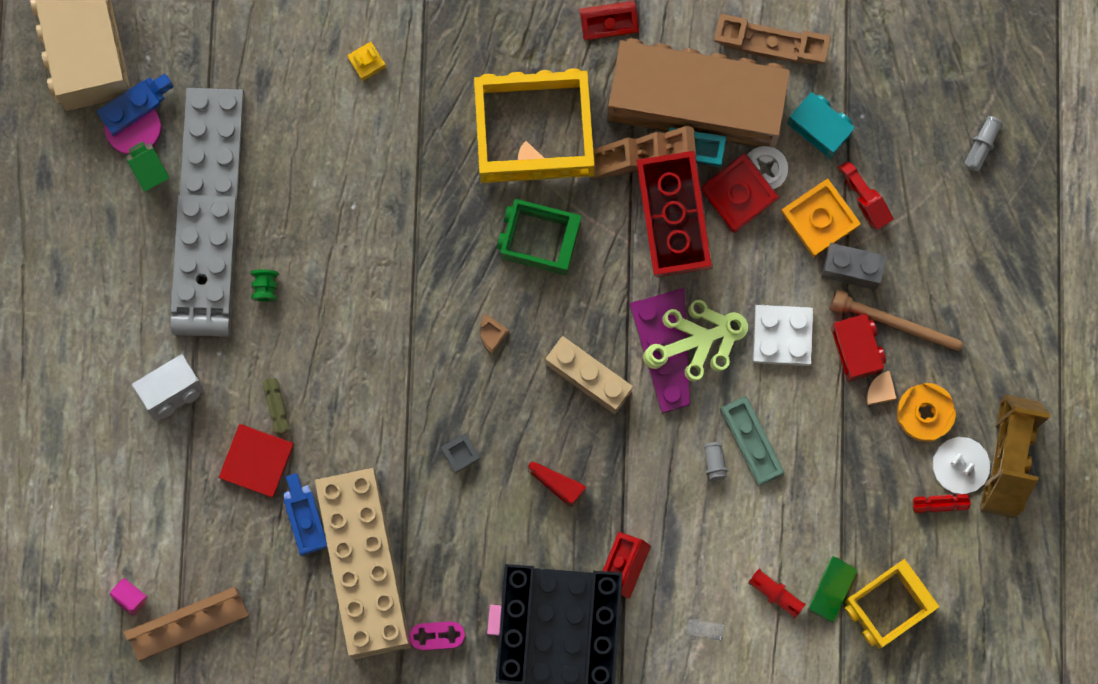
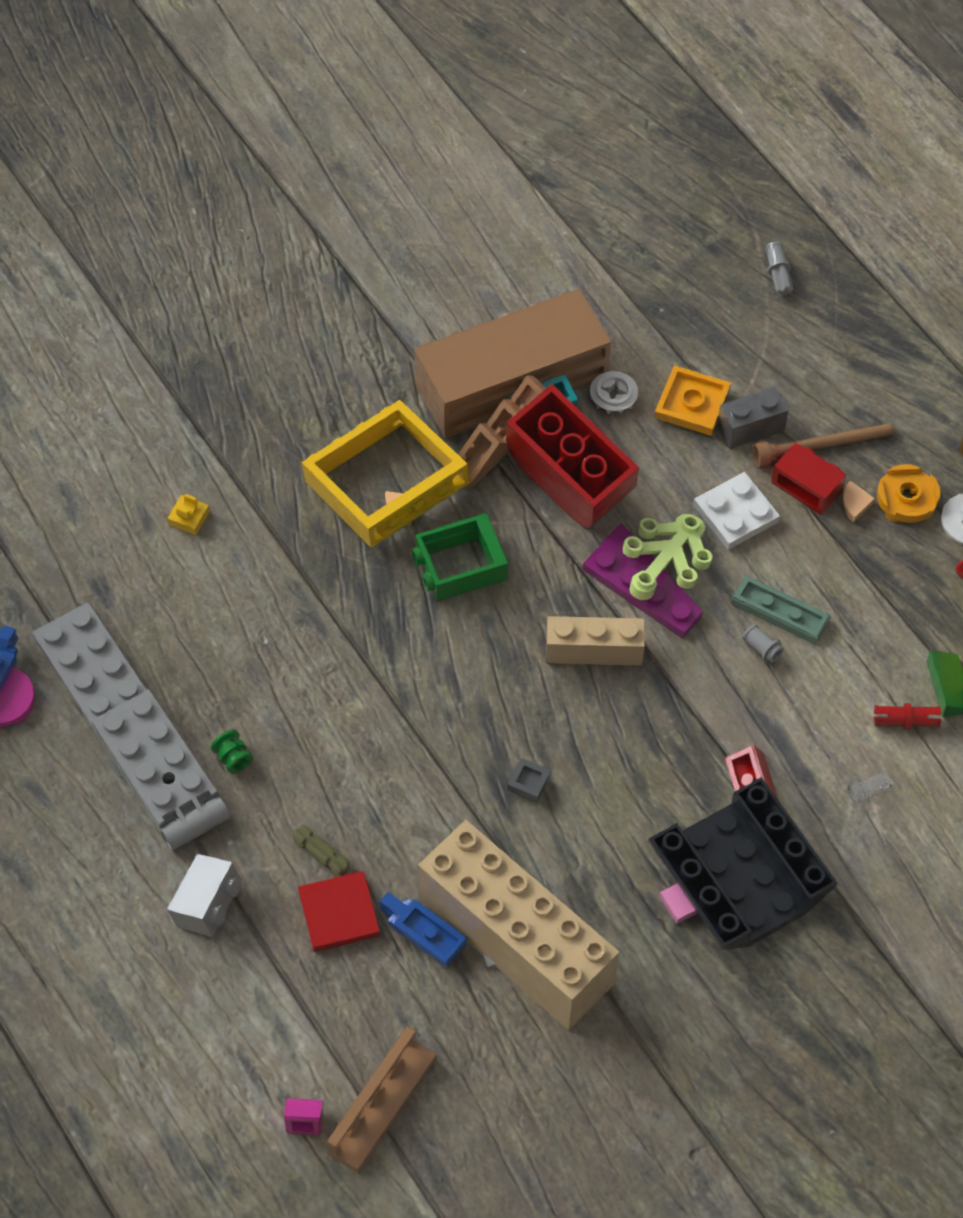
camera: 35 degrees left, 20 degrees down
(146, 165) = (43, 709): green brick -> none
(438, 643) = (640, 958): dark pink beam -> none
(492, 333) = (477, 665): medium nougat tile -> none
(563, 487) = (637, 748): red slope -> none
(609, 20) = (385, 360): red slope -> none
(739, 192) = (614, 414): red tile -> none
(772, 42) = (574, 276): medium nougat slope -> none
(821, 124) = (636, 330): teal brick -> none
(870, 201) = (726, 362): red piece -> none

